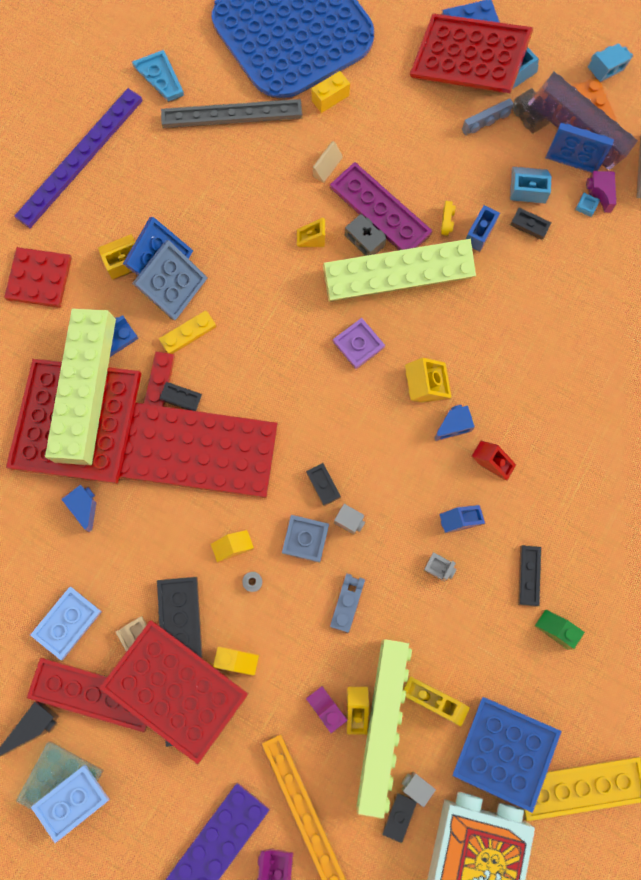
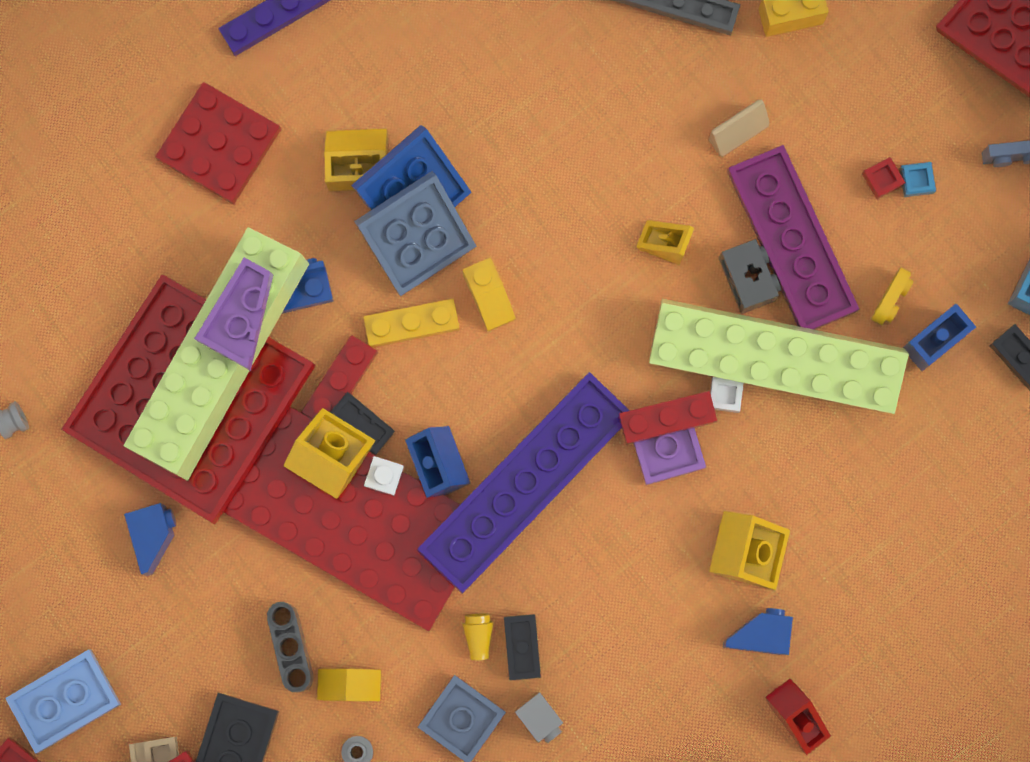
camera: 25 degrees right, 5 degrees up
(84, 355) = (238, 315): none -> medium lavender wing
(168, 417) = (329, 453): none -> yellow slope
(182, 530) = (279, 635): none -> dark grey beam
(205, 419) = (384, 476): none -> white plate
(224, 299) = (489, 294): none -> yellow slope
(233, 399) = (437, 461): none -> blue brick
(287, 393) = (524, 483): none -> dark purple plate
(295, 487) = (478, 635): none -> yellow cone
(352, 326) = (667, 417): none -> red plate
(379, 303) = (726, 394): none -> white plate
(415, 159) = (883, 178): none -> red plate
(434, 154) = (918, 179): none -> dark azure tile

